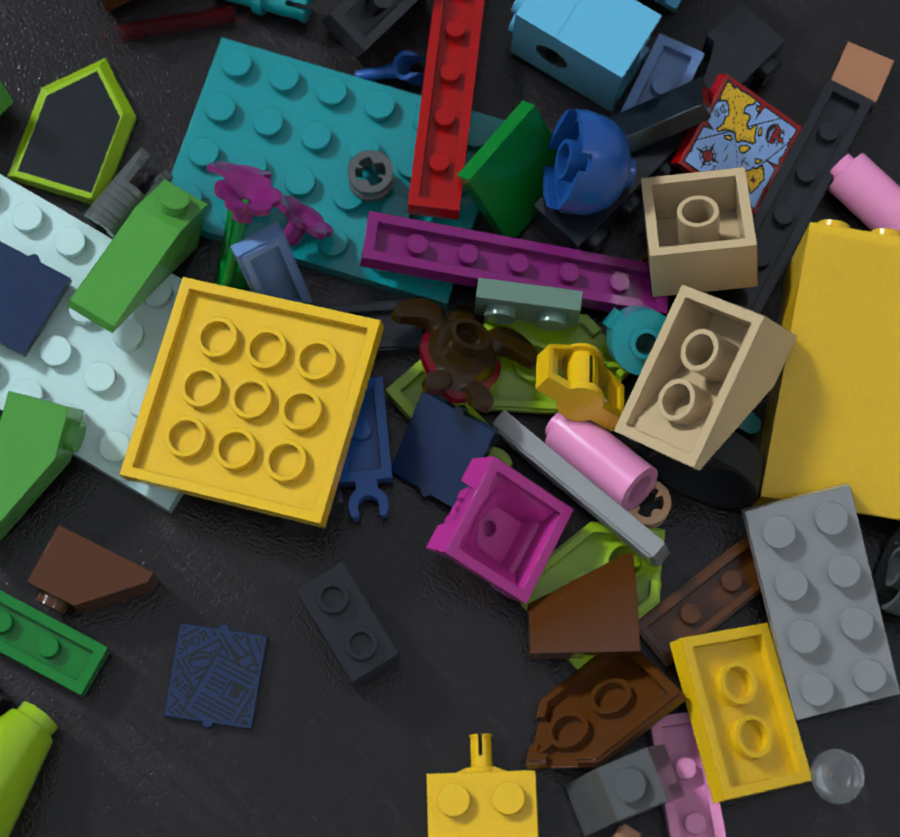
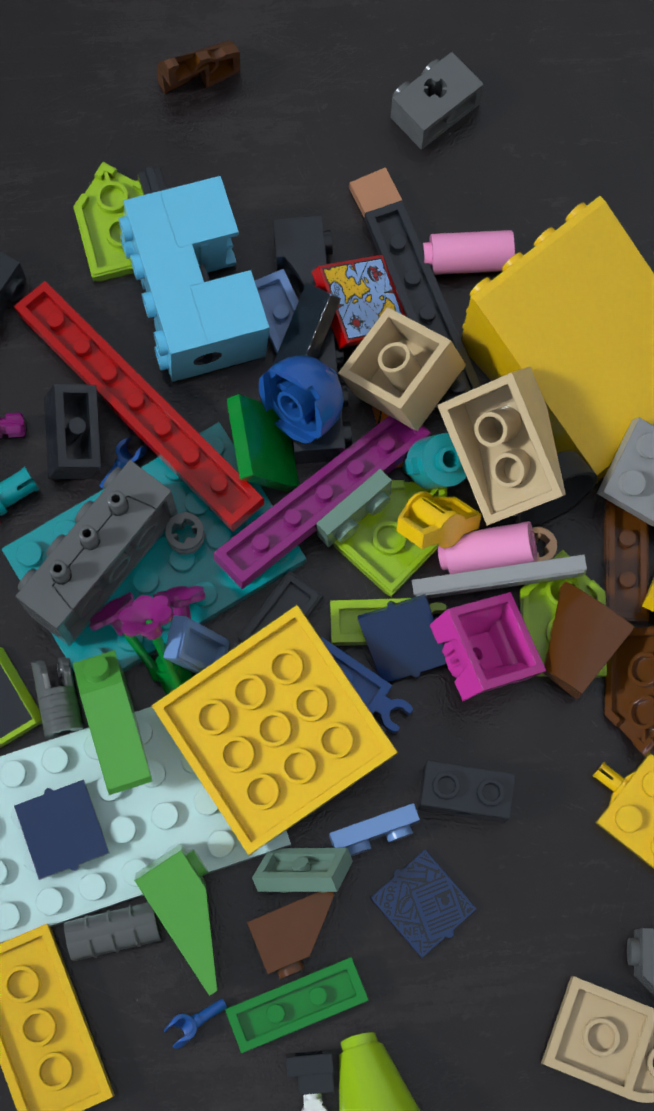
camera: 50 degrees left, 0 degrees up
(148, 536) = (303, 870): none -> sand green plate
(224, 562) = (392, 824): none -> medium blue plate
(276, 111) = (97, 552): none -> dark grey piece
(461, 352) = (353, 575): dark brown animal -> none

